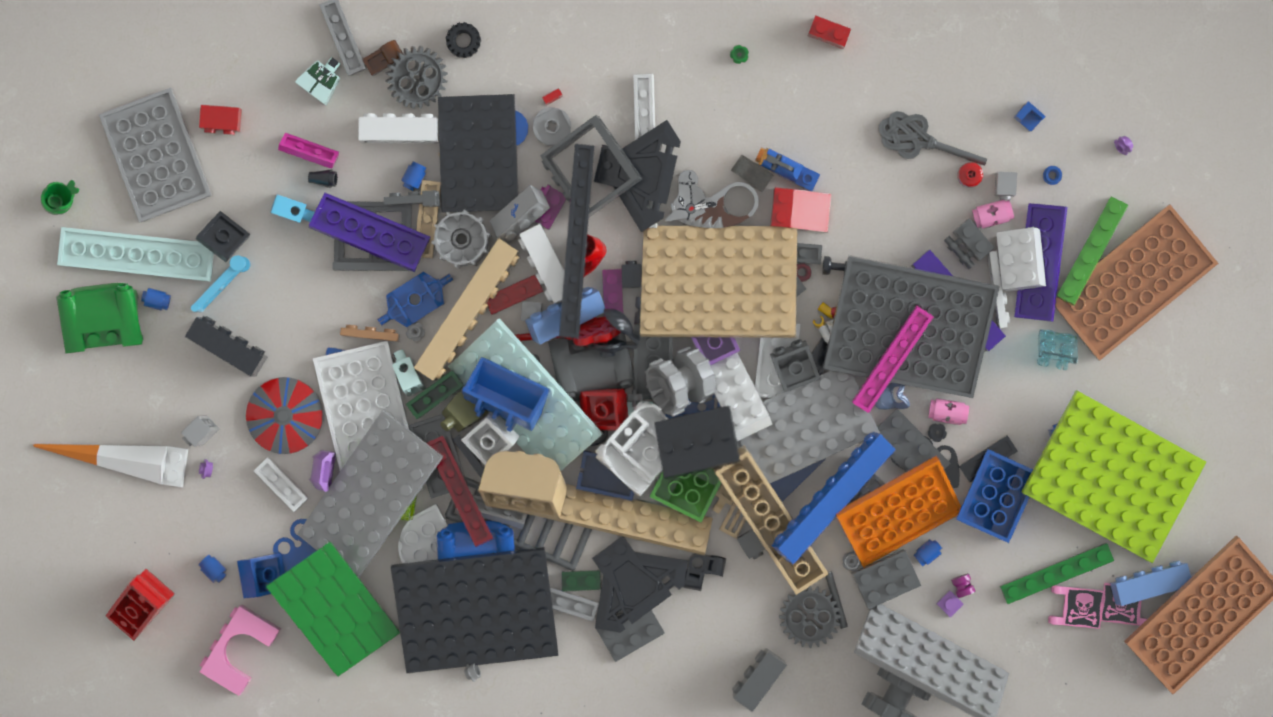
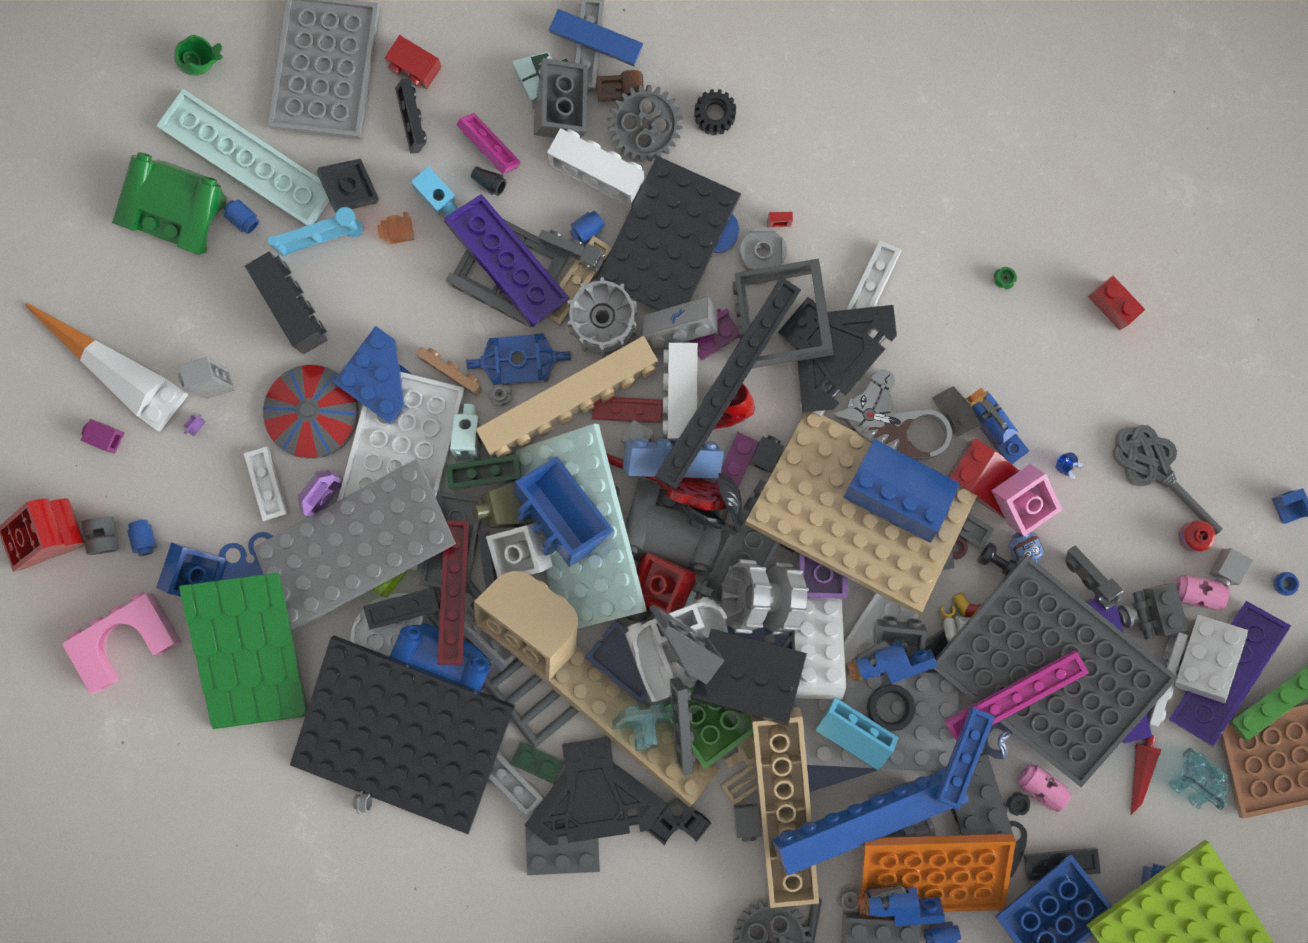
camera: 25 degrees right, 5 degrees down
(143, 511) = (101, 436): none -> magenta brick
(186, 588) = (100, 544): none -> dark grey wheel
(240, 159) = (410, 115): none -> black plate
(275, 249) = (396, 229): none -> clear orange brick
(318, 366) = (375, 376): none -> blue plate
(346, 31) = (596, 37): none -> blue tile
(346, 92) = (561, 98): none -> dark grey slope
(427, 521) = (401, 608): none -> black plate
(641, 513) = (643, 723): none -> clear light blue plate
(647, 443) = (691, 648): none -> dark grey slope
(672, 505) = (681, 726): none -> dark grey plate
(740, 253) = (902, 491): none -> blue slope
(792, 378) = (890, 659): none -> blue plate
(794, 443) = (857, 734): none -> medium azure brick
(809, 397) = (906, 697): none -> black tyre
(834, 213) = (1027, 500): none -> bright pink brick
(851, 168) = (1066, 463): none -> clear blue plate
(852, 245) = (1026, 544): none -> medium blue head
(876, 420) = (964, 758): none -> blue tile
(885, 544) = (901, 904): none -> blue plate
(920, 249) = (1105, 590): none -> dark grey plate
(948, 258) = (1127, 615): none -> light grey plate
(1014, 359) = (1145, 764): none -> red bar

